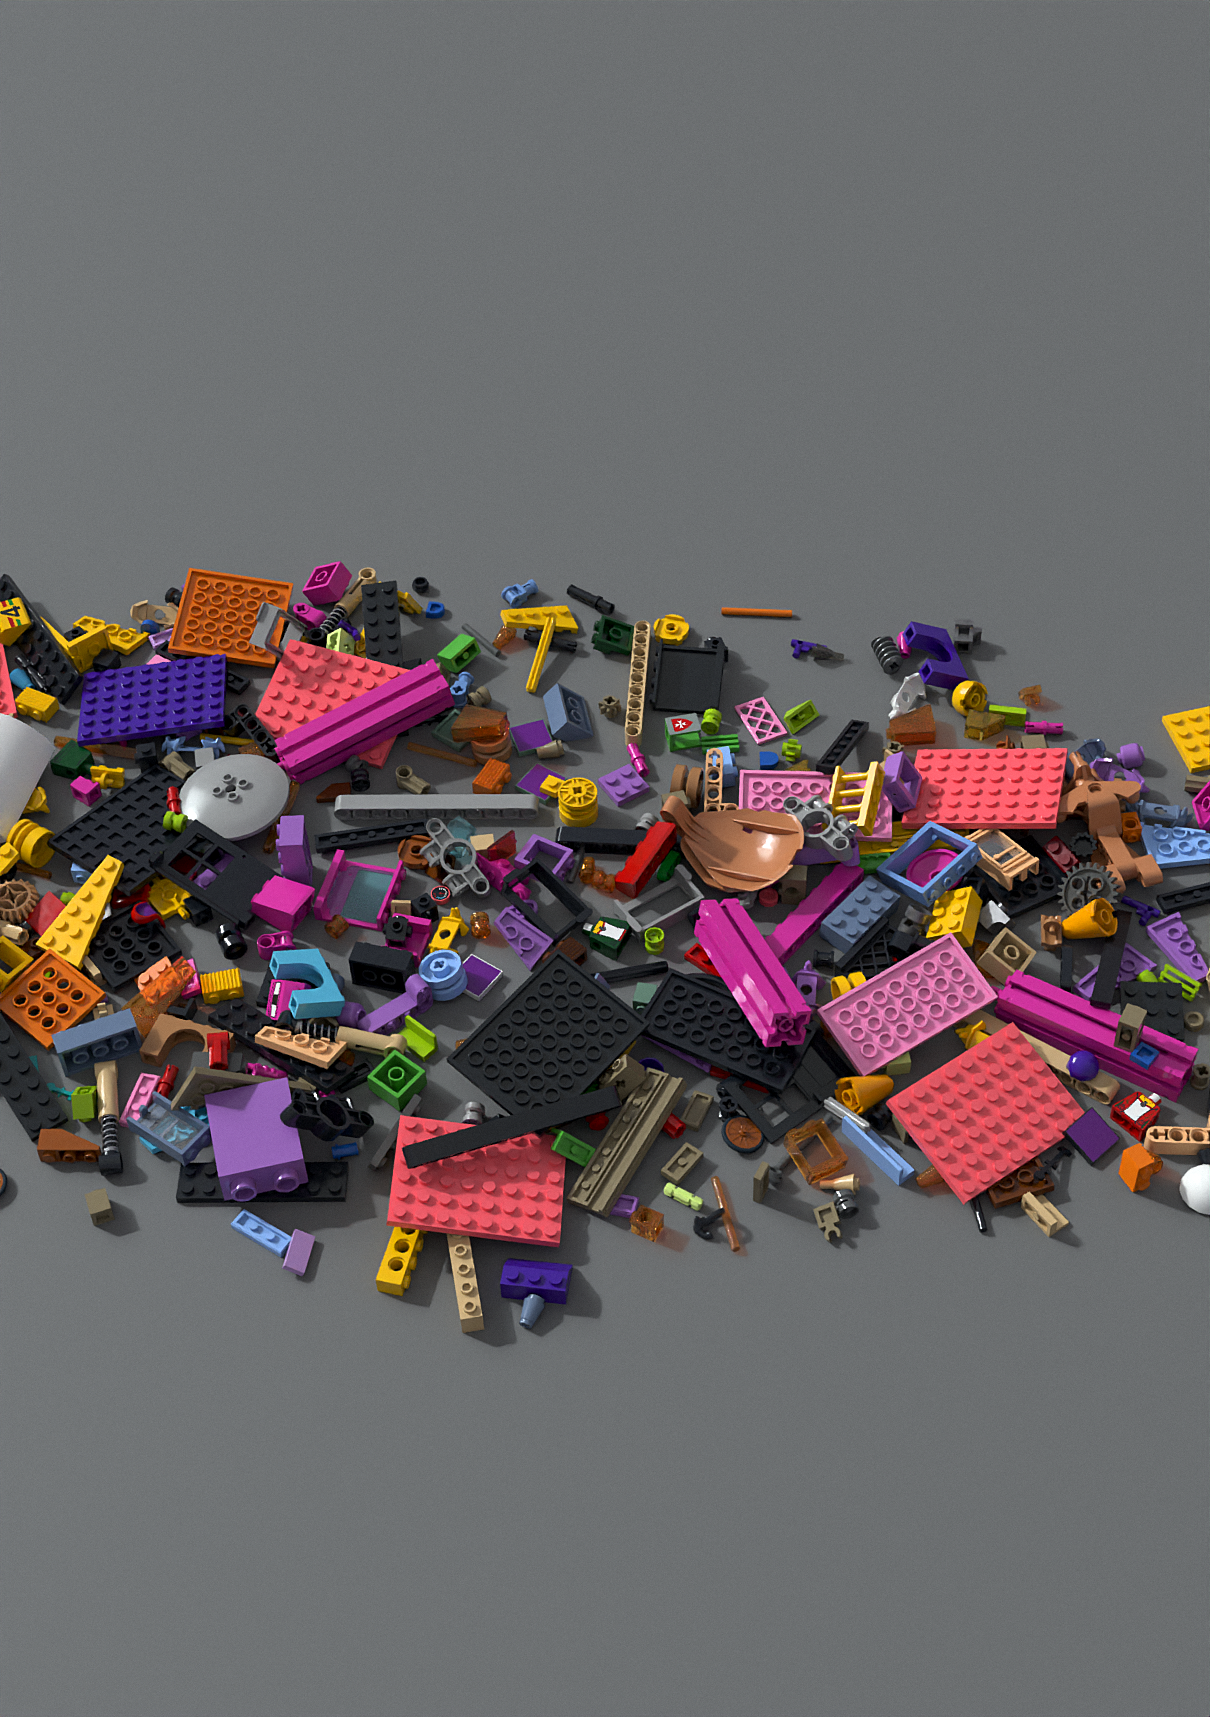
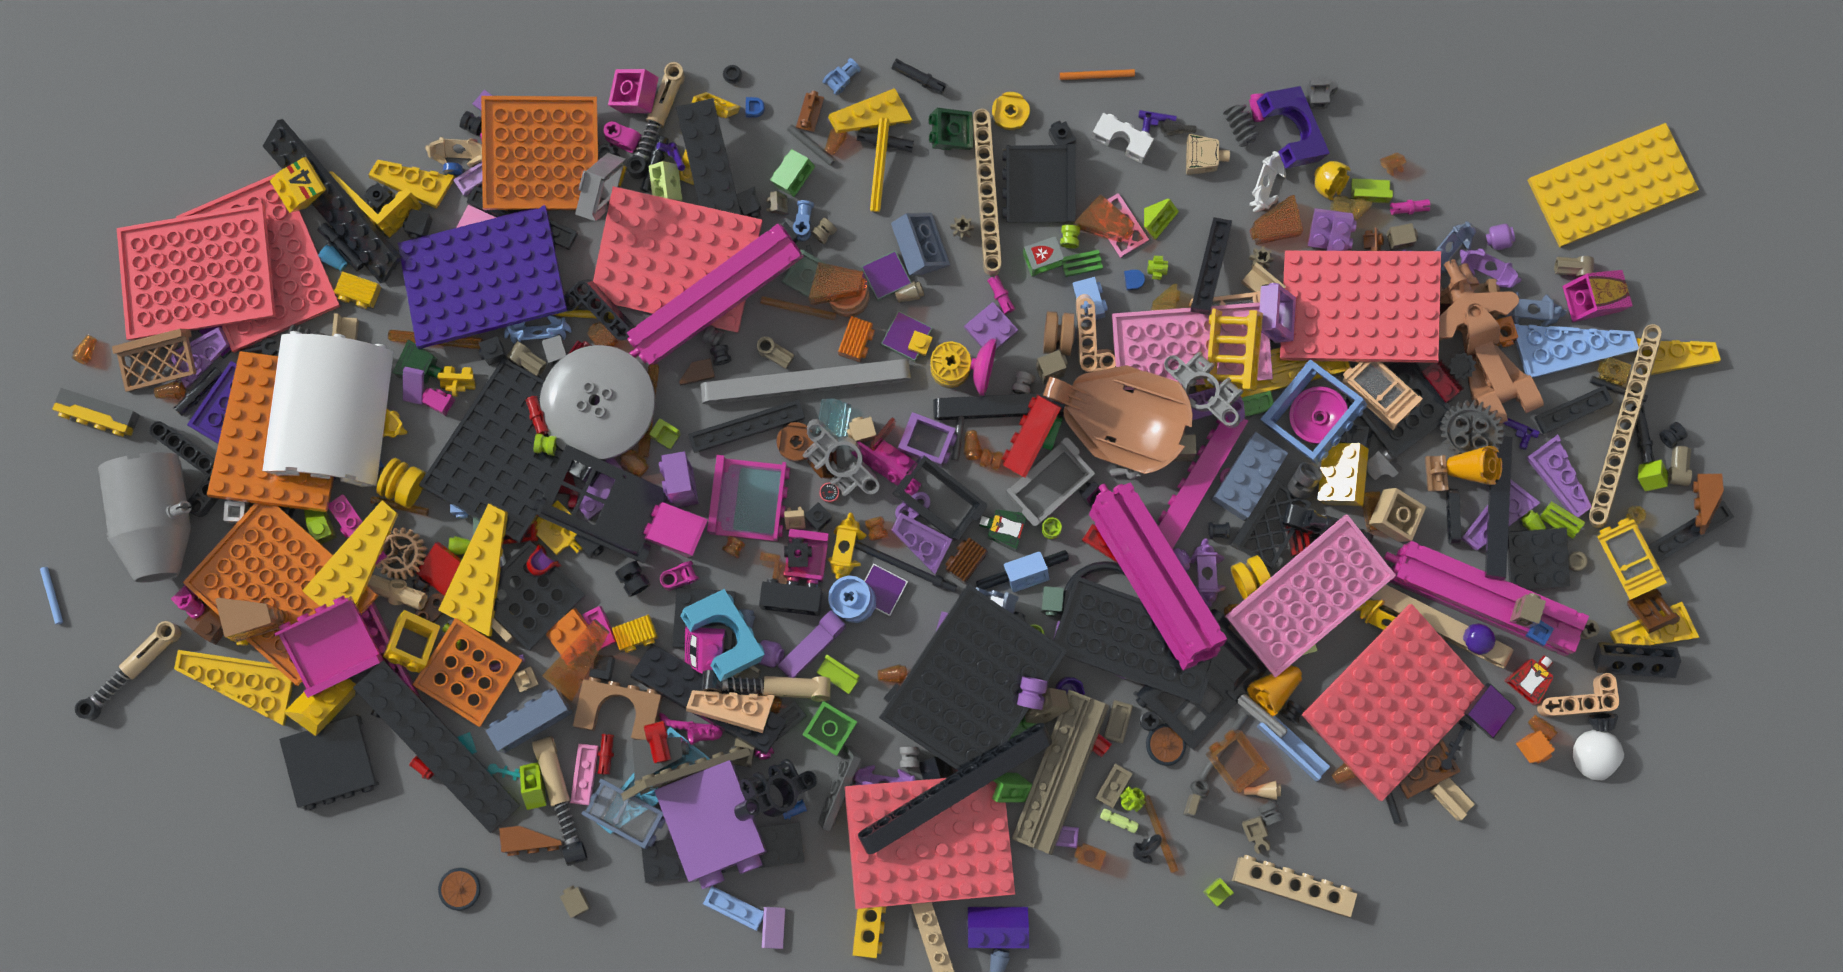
camera: 10 degrees left, 30 degrees up
(65, 773) = (413, 385): none -> medium lavender tile
(258, 851) = (634, 462): none -> clear orange brick
(369, 932) = (772, 560): none -> clear orange panel
(486, 615) = (810, 111): none -> dark orange hinge
(494, 956) = (936, 581): none -> black bar
(607, 1047) = (1032, 693): none -> medium lavender wheel
(611, 801) = (983, 366): none -> dark pink dish
(624, 974) = (1027, 571): none -> light blue panel
(699, 1175) = (1132, 799): none -> lime gear
(746, 711) = (1105, 221): none -> clear orange slope
(762, 648) = (1110, 128): none -> white arch
(779, 1268) = (1218, 892): none -> lime panel
(848, 673) = (1204, 154): none -> tan torso
(870, 1283) = (1343, 906): none -> tan brick
(963, 732) = (1332, 230): none -> medium lavender plate

